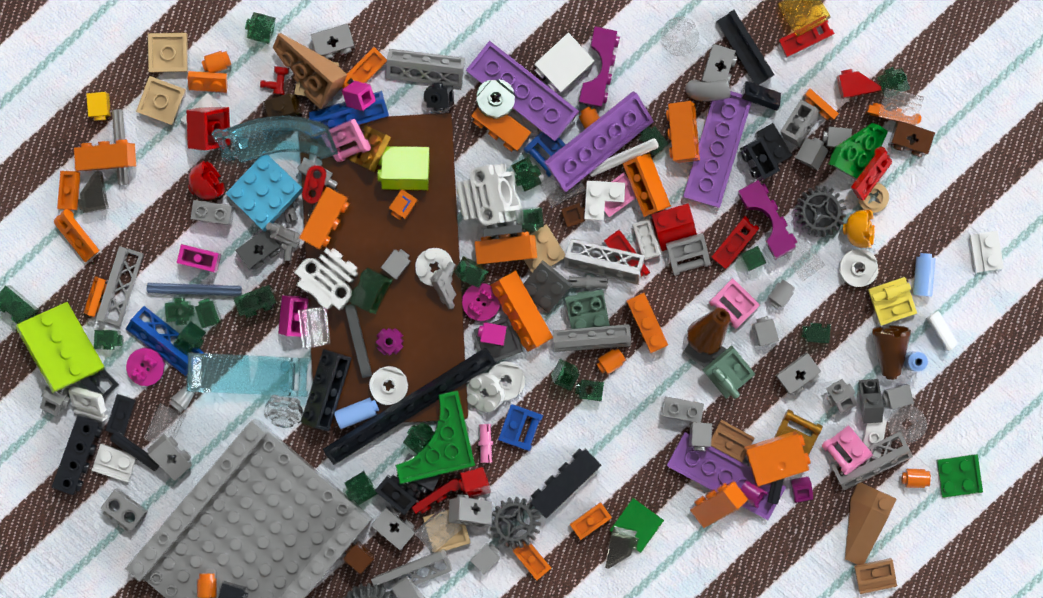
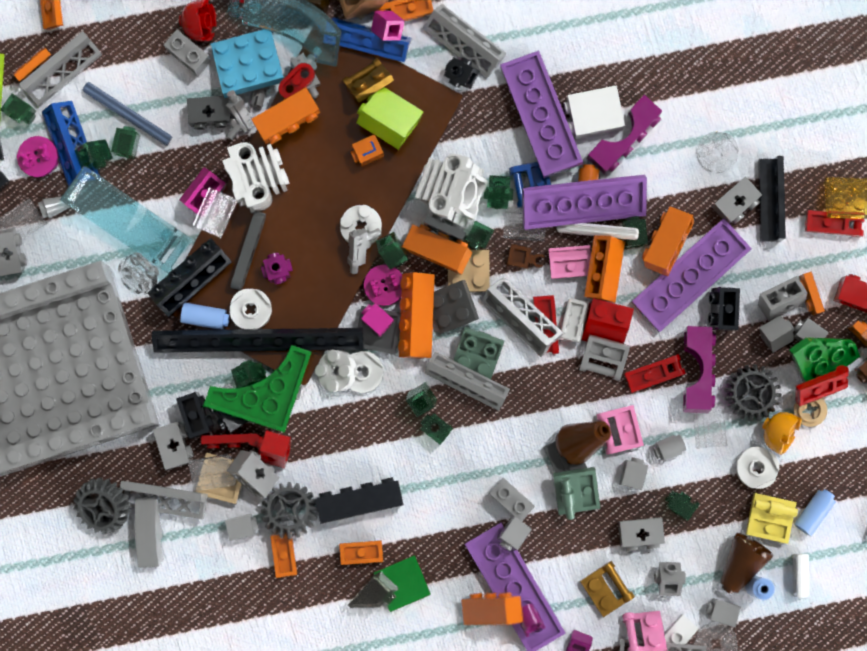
camera: 25 degrees right, 5 degrees down
(173, 315) = (100, 124): clear green brick -> none
(198, 258) = (149, 86): dark pink brick -> none
(261, 298) = (176, 156): clear green brick -> none
(345, 134) = (355, 53): bright pink plate -> none
(358, 556) = (122, 451): reddish brown brick -> none
(360, 488) = (164, 389): clear green brick -> none
(370, 290) = (288, 210): clear green brick -> none
(396, 263) = (327, 200): light grey brick -> none
(485, 443) = (307, 419): bright pink pin -> none
(504, 128) = (501, 133): orange brick -> none
(506, 98) = (507, 114): plate -> none
(514, 424) = (345, 418): blue plate -> none
(588, 282) = (495, 327): light grey pin -> none
(599, 192) = (553, 250): white plate -> none
(610, 361) = (471, 413): orange brick -> none
(647, 322) = (527, 397): orange brick -> none
(708, 90) = (715, 216): light grey cylinder -> none
(731, 440) = (540, 558): medium nougat plate -> none
(752, 258) = (662, 397): clear green brick -> none
(761, 95) = (761, 251): black plate -> none
(775, 143) = (748, 304): black plate -> none
(776, 460) = (572, 601): orange piece -> none
(871, 401) = (694, 601): dark grey slope -> none

